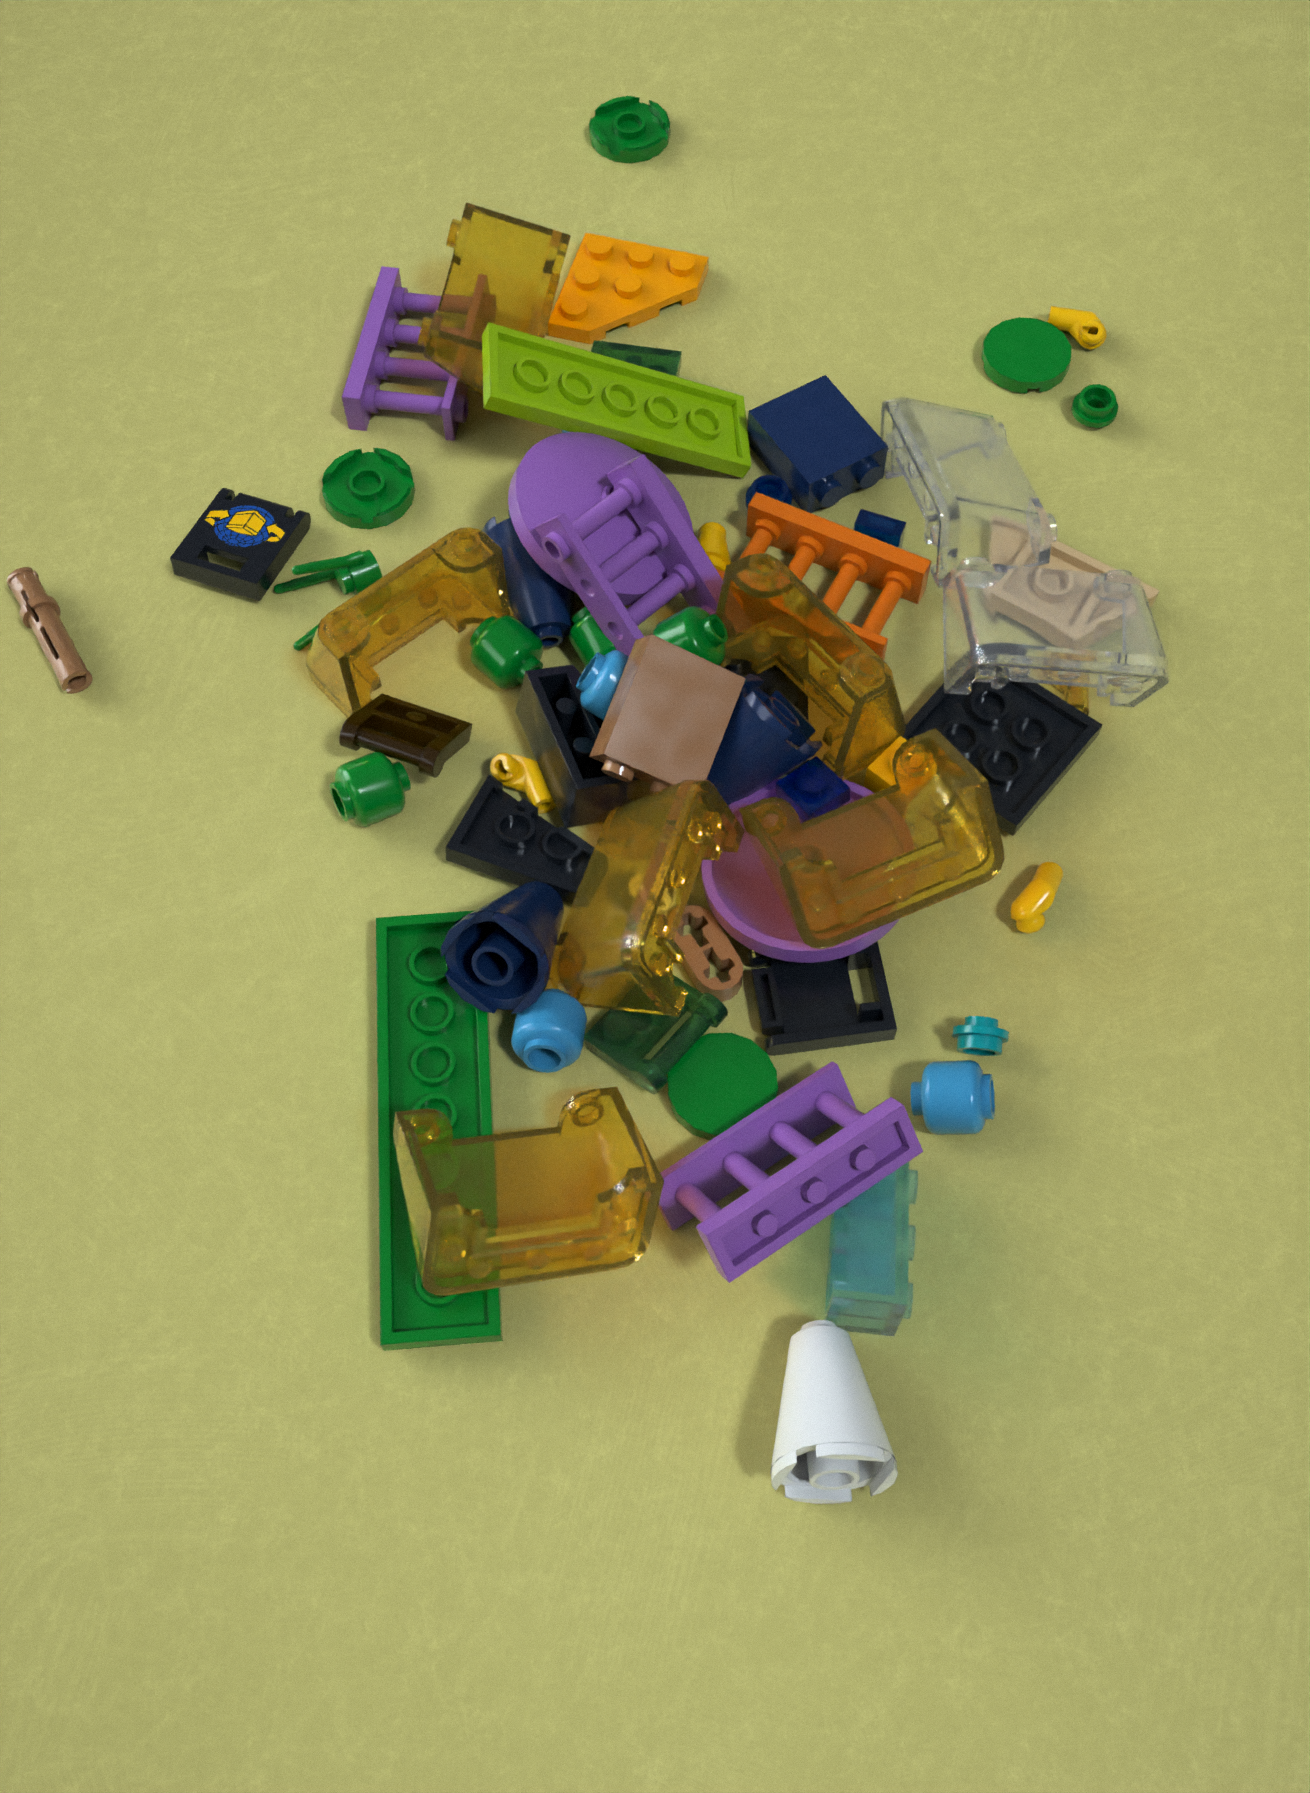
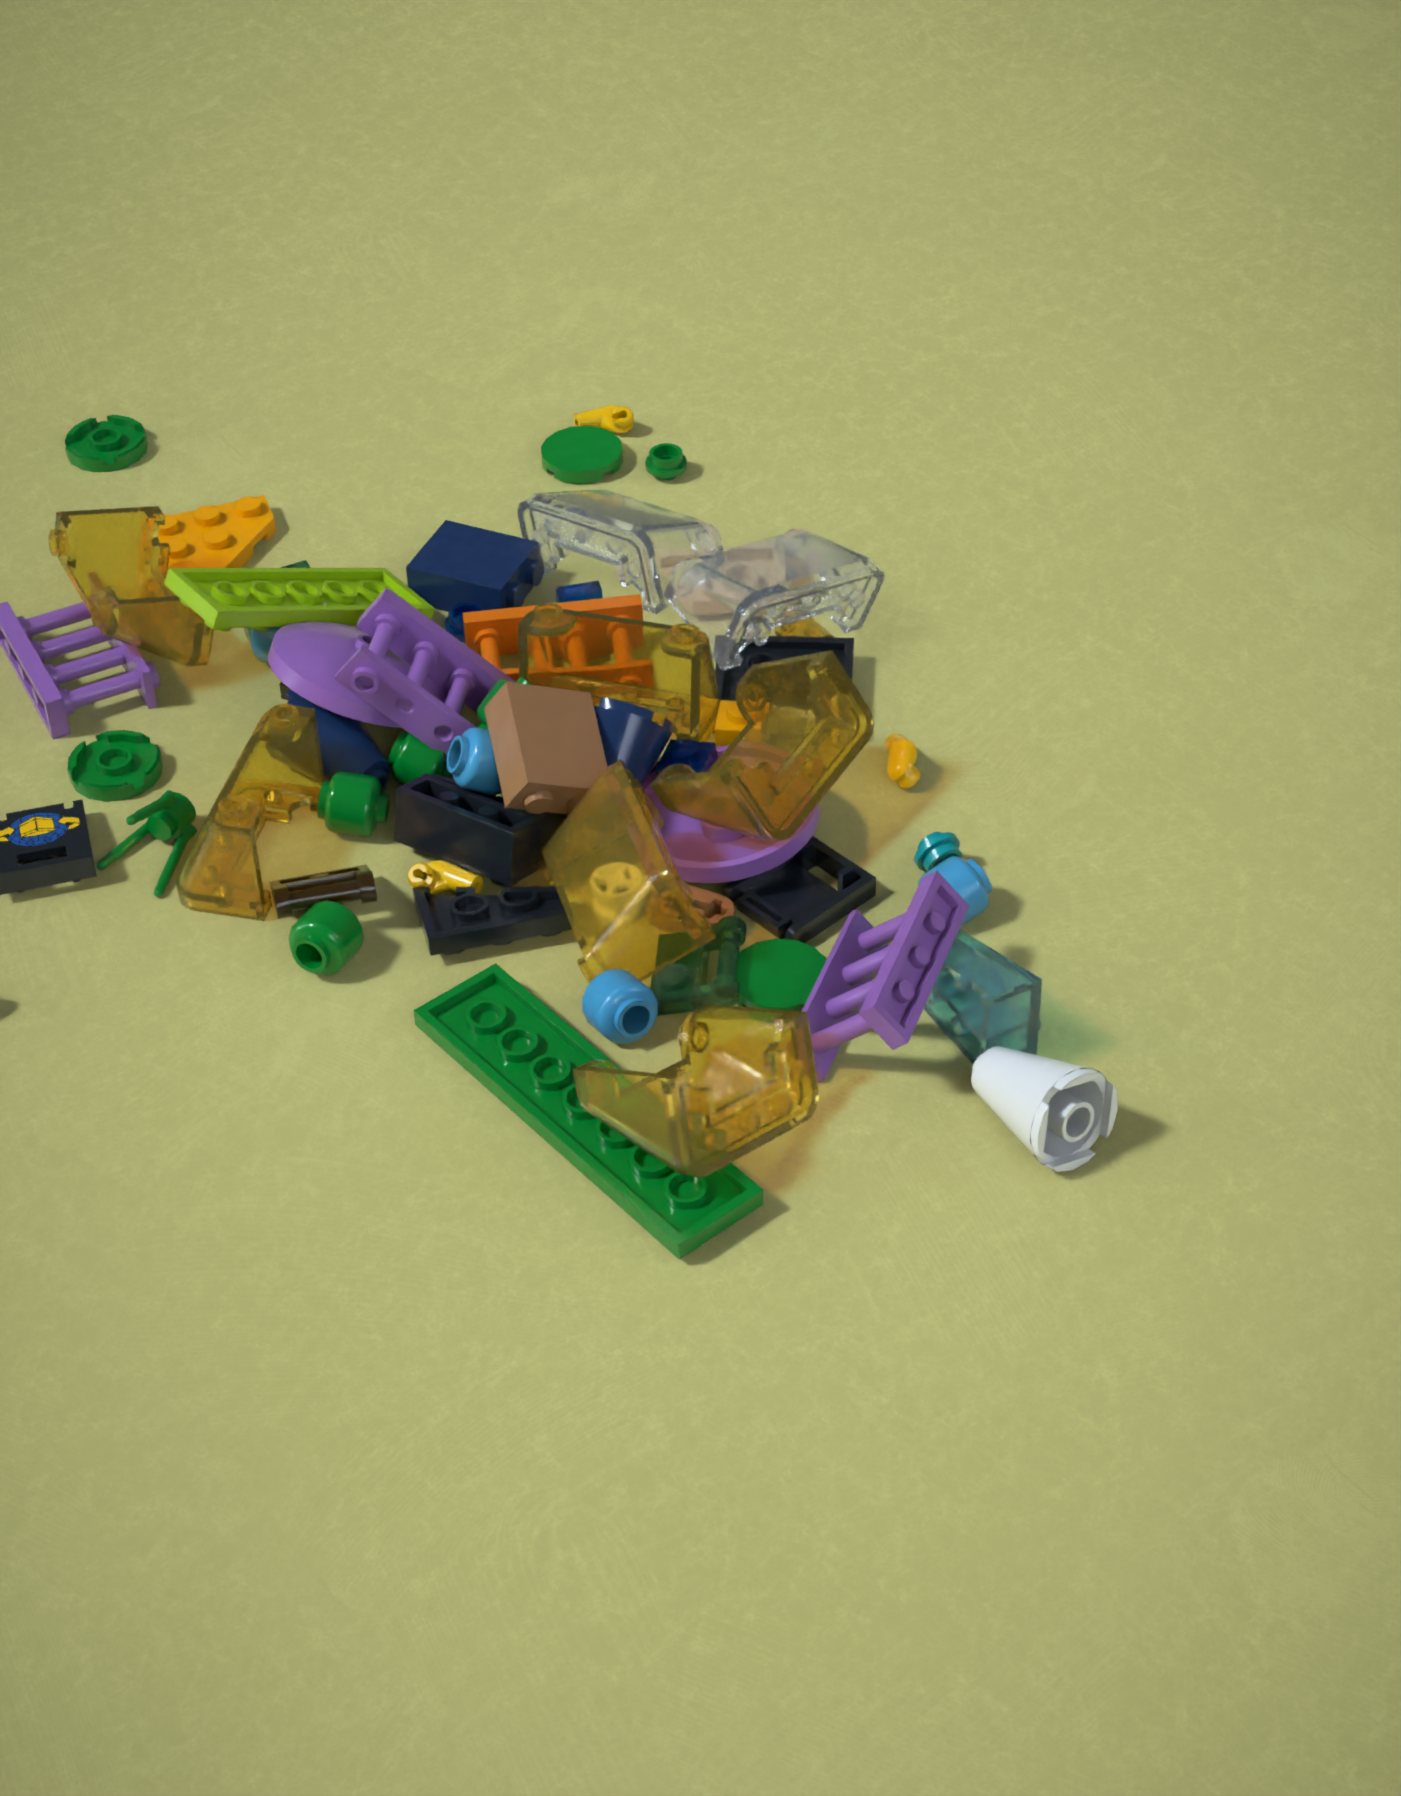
camera: 35 degrees left, 20 degrees down
(505, 949) = (553, 961): dark blue cone -> none

